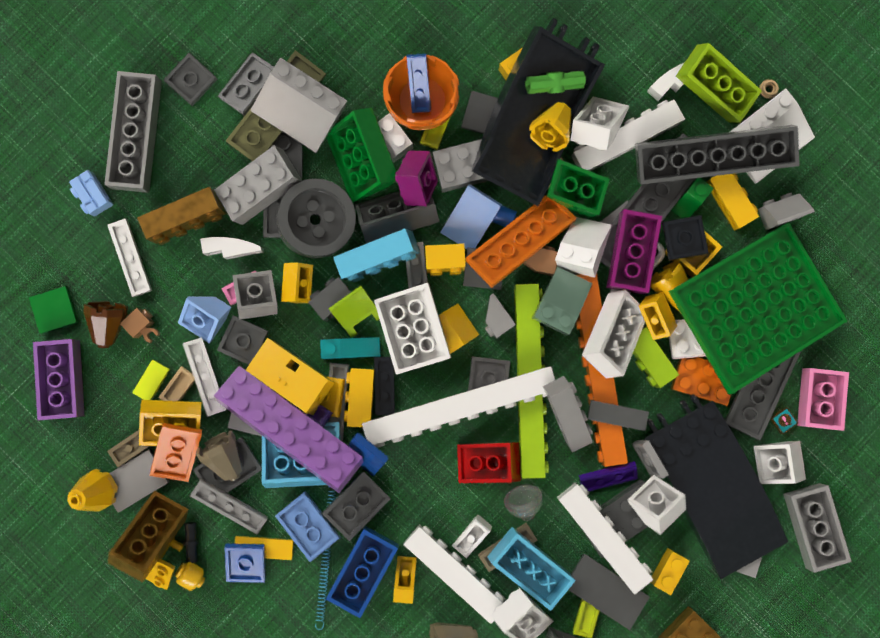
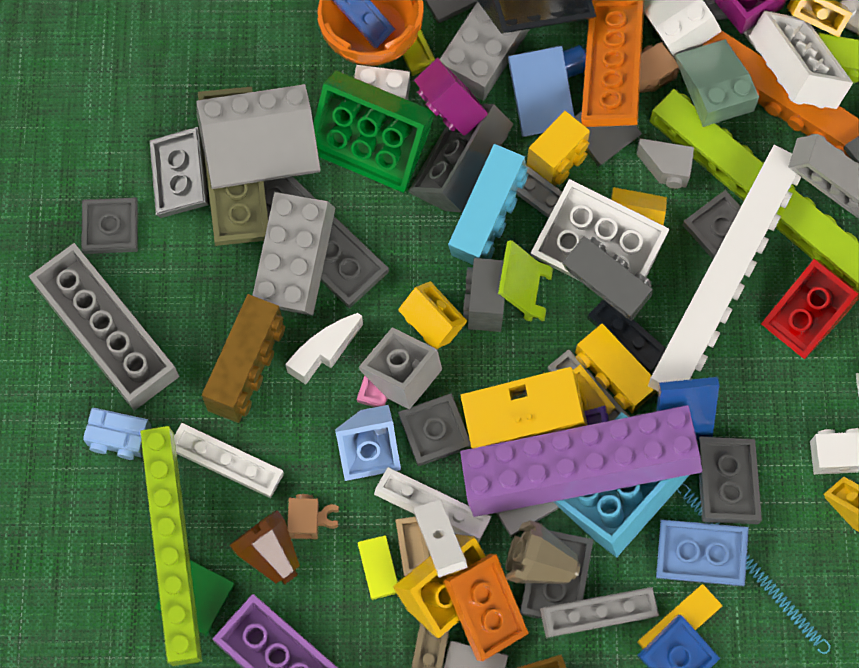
camera: 40 degrees left, 15 degrees down
(58, 276) = (171, 546): none -> lime brick
(186, 391) = (440, 538): none -> white tile
(321, 199) = (397, 210): dark grey brick -> none
(350, 348) = (551, 332): teal slope -> none
(362, 572) = (808, 538): blue brick -> none
(390, 354) = (608, 277): none -> dark grey brick

